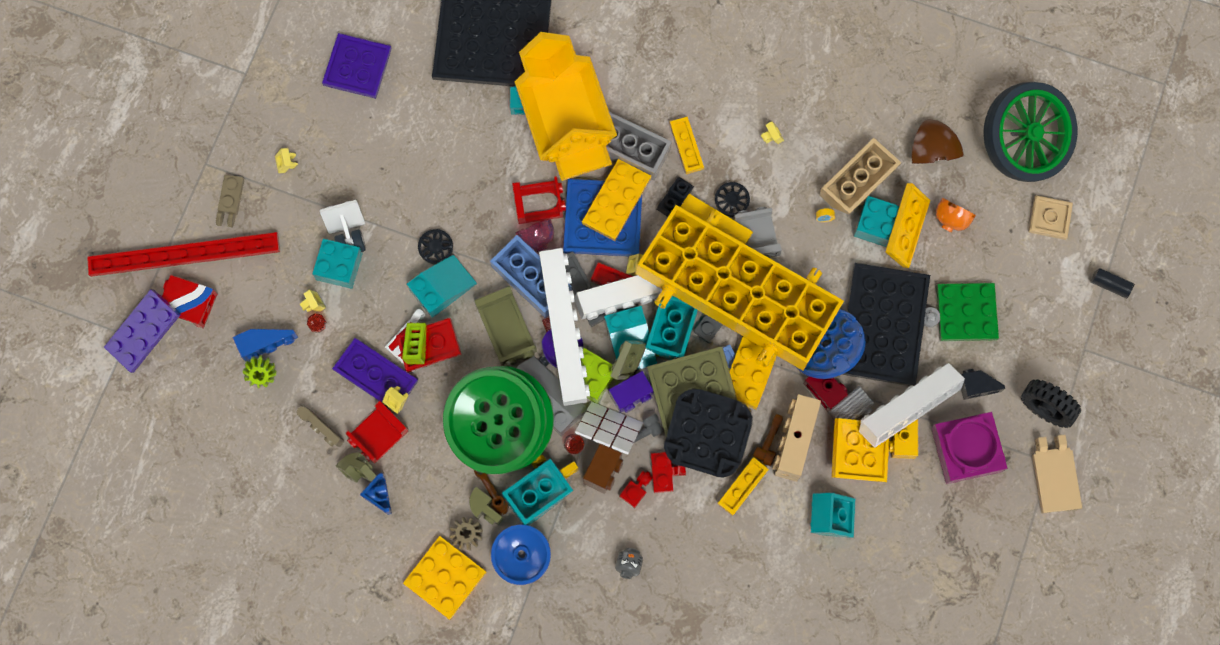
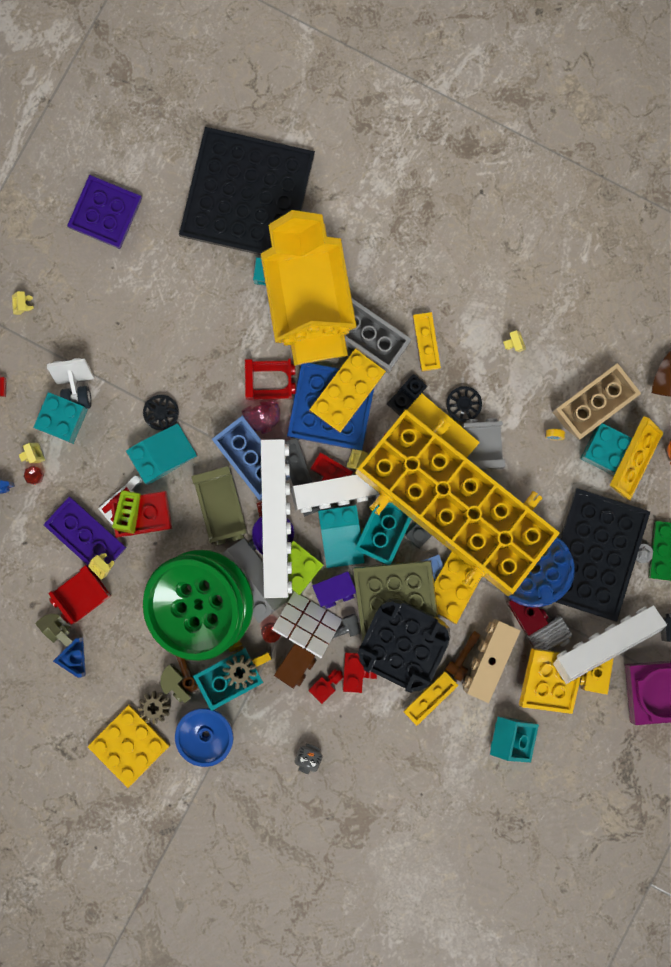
camera: 10 degrees right, 10 degrees up
(319, 425) = (25, 581): dark tan hinge -> none
(555, 481) = (233, 669): none -> dark tan gear
(628, 360) = (336, 559): olive plate -> none

